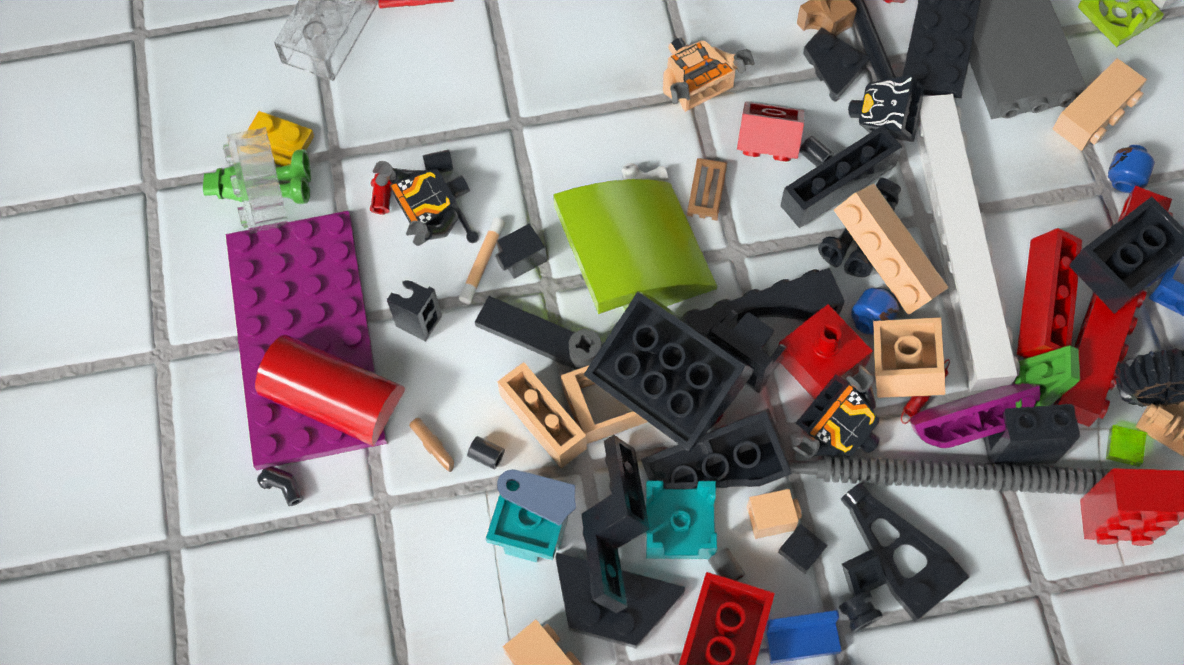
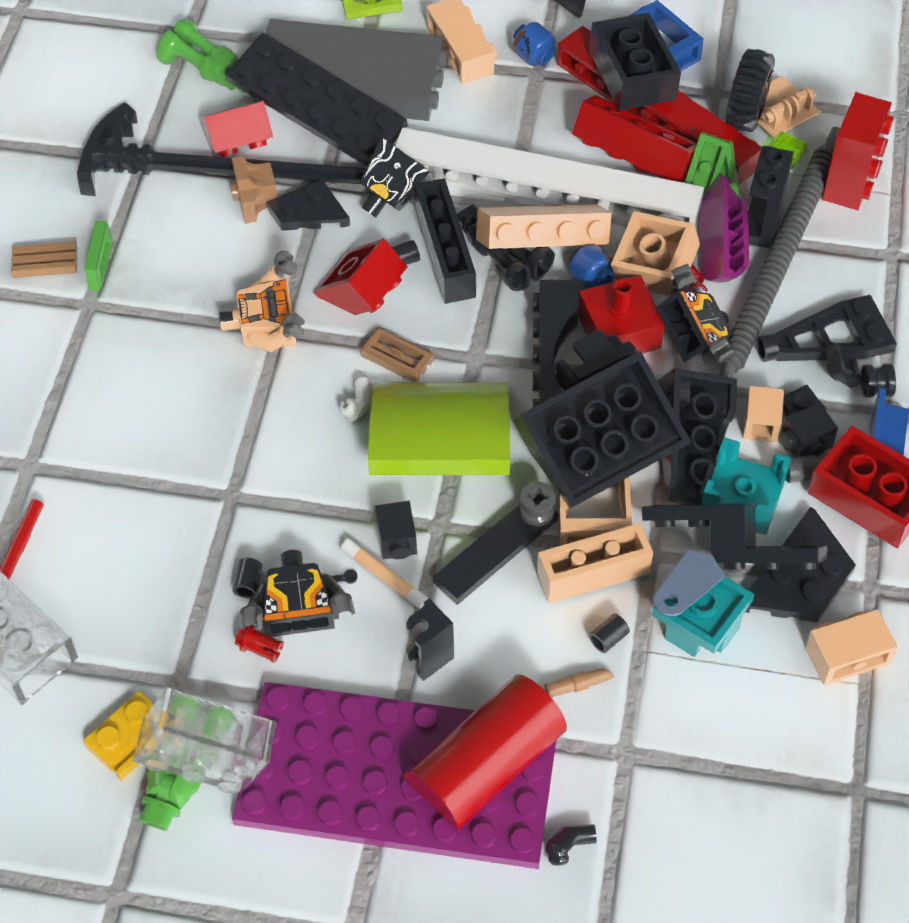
camera: 70 degrees left, 10 degrees down
(767, 561) = (808, 432): none -> black brick

